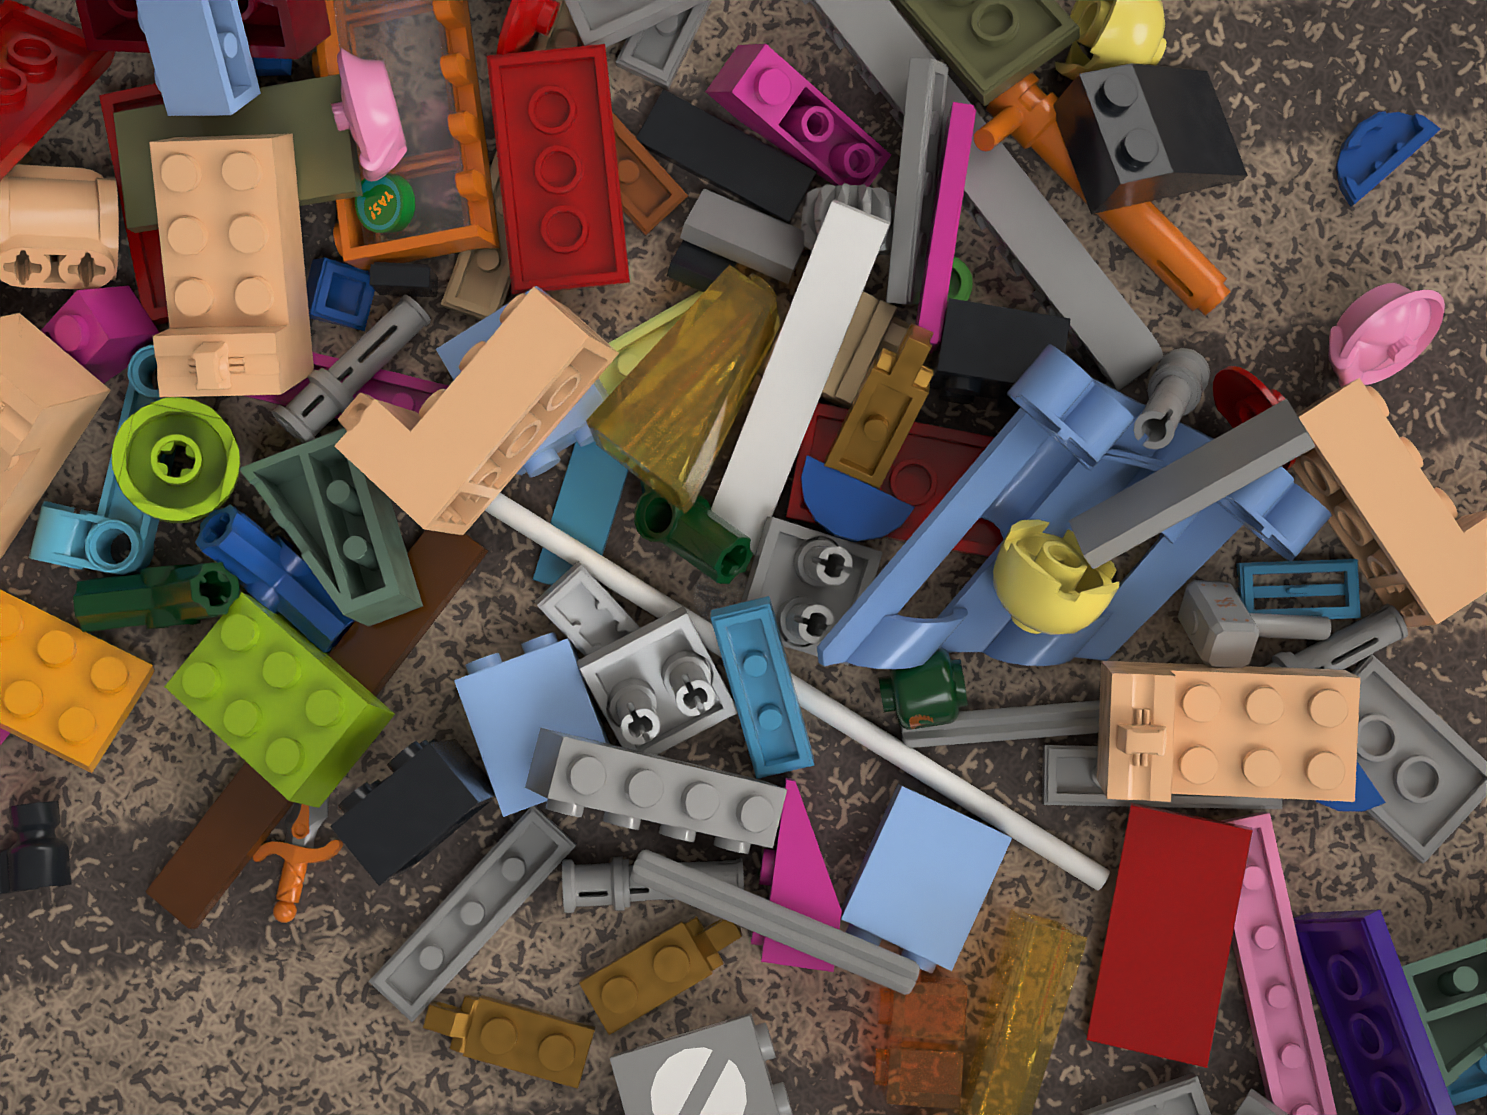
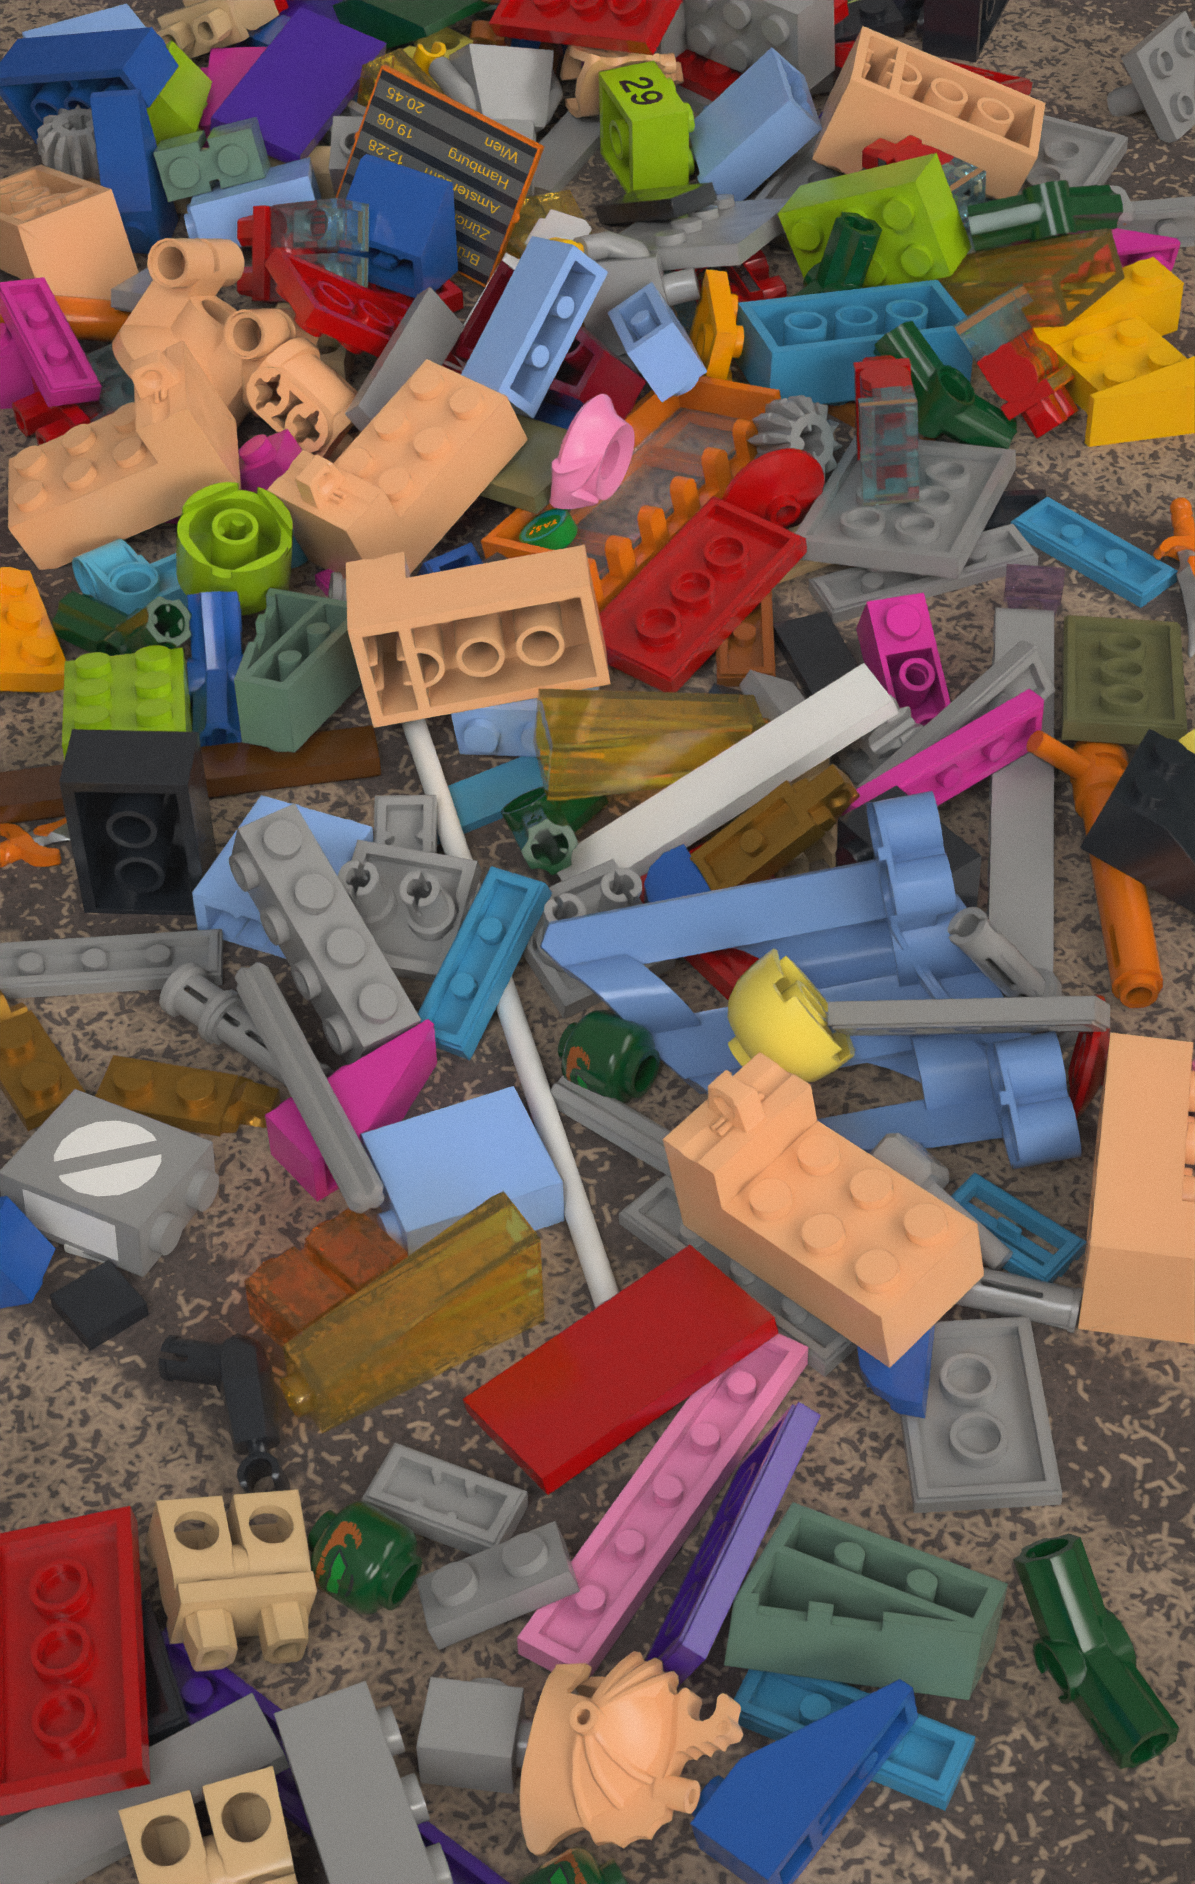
camera: 45 degrees right, 40 degrees down
(93, 122) = (423, 334): none -> light grey tile

